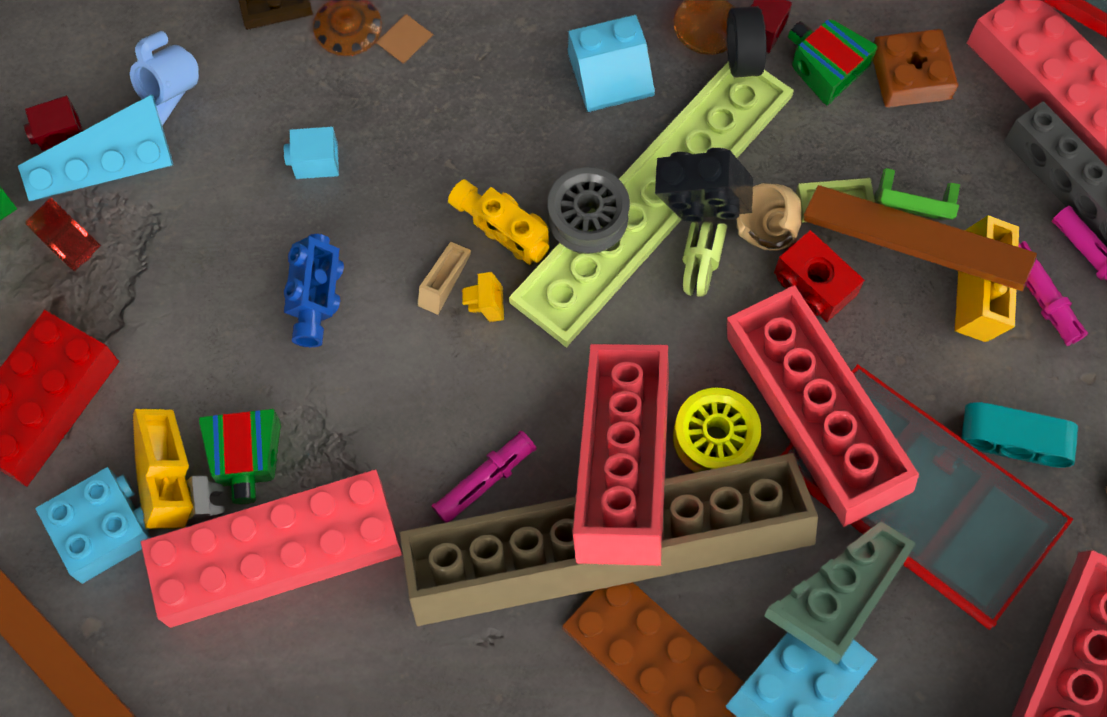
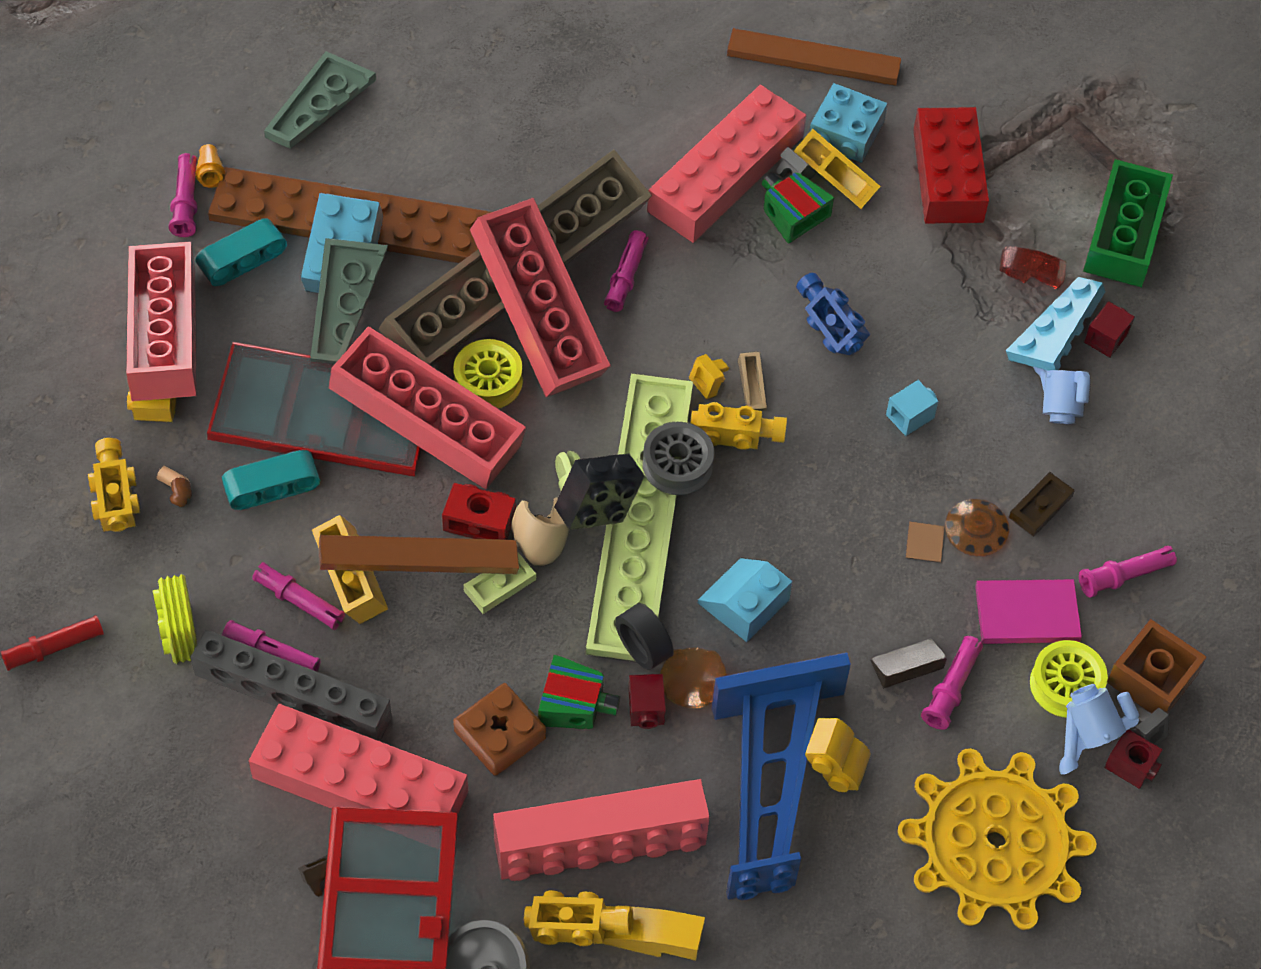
camera: 145 degrees right, 10 degrees down
(914, 204) = (412, 577): bright green piece -> none

